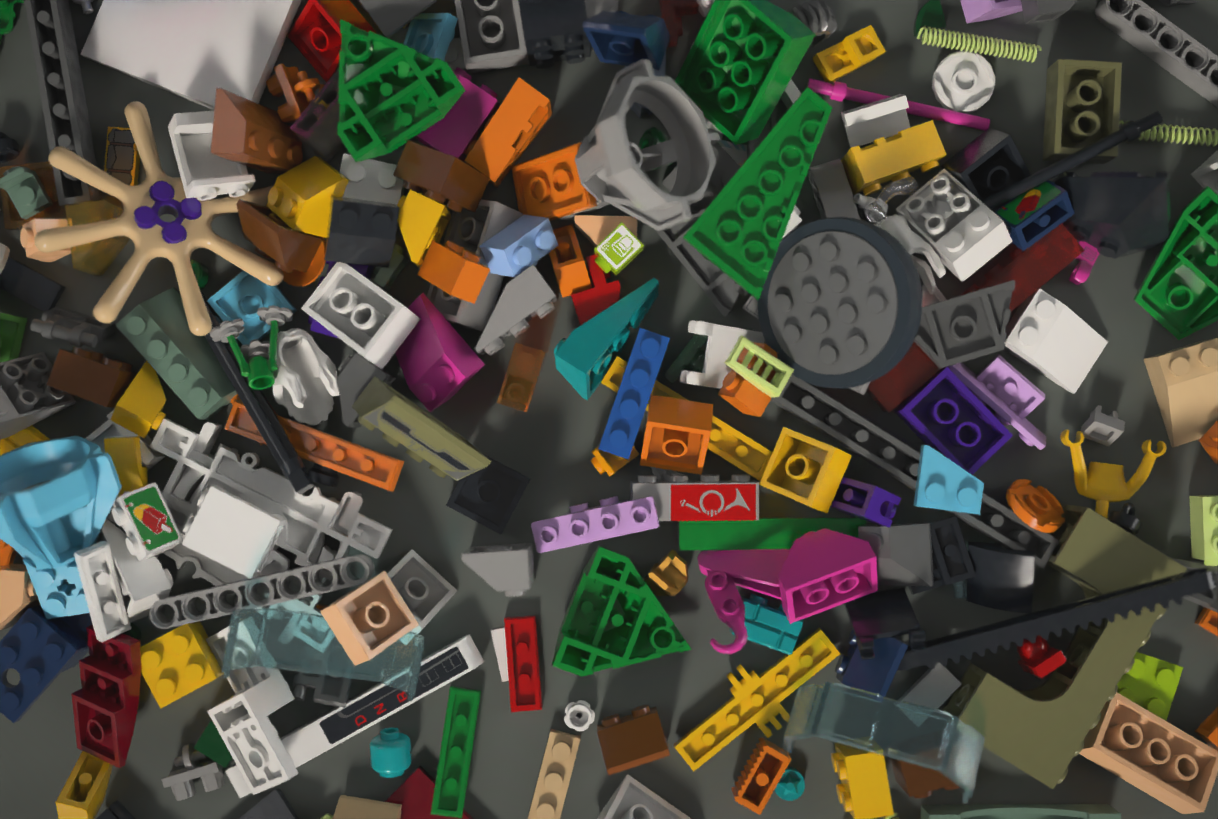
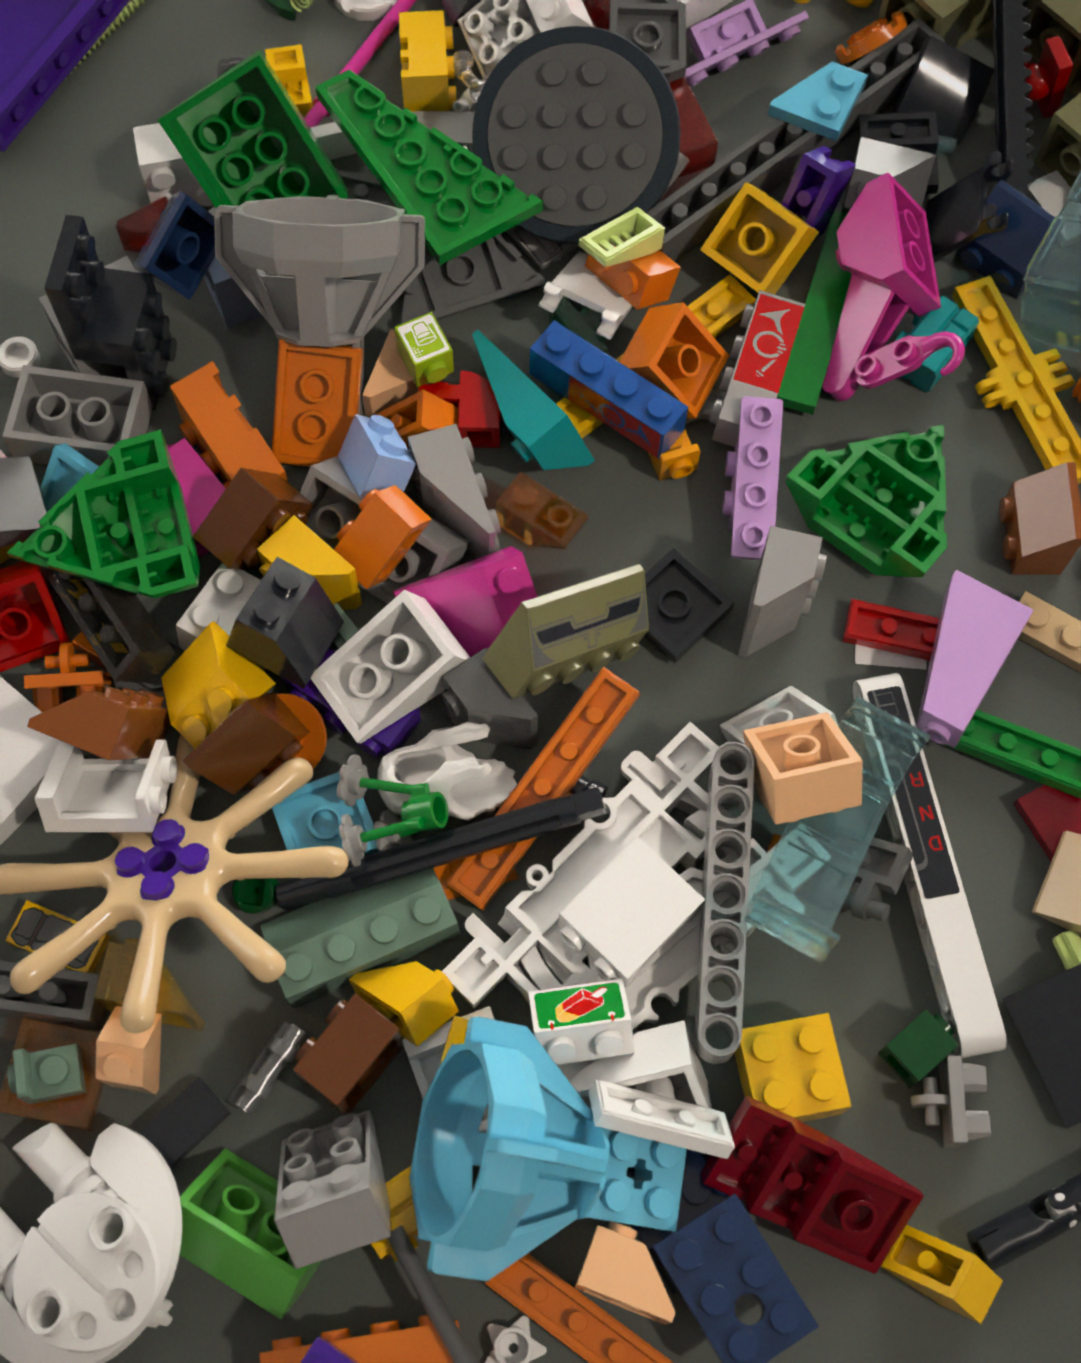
camera: 70 degrees left, 20 degrees down
(245, 721) = (886, 976): white bracket -> none
(390, 753) = (989, 824): teal head -> none
(507, 711) = (968, 651): none -> lavender slope
(582, 723) = (1000, 577): white plate -> none
(668, 575) = (840, 425): pearl gold piece -> none
(876, 120) = (377, 61): white panel -> none
(953, 421) = (743, 81): dark purple brick -> none

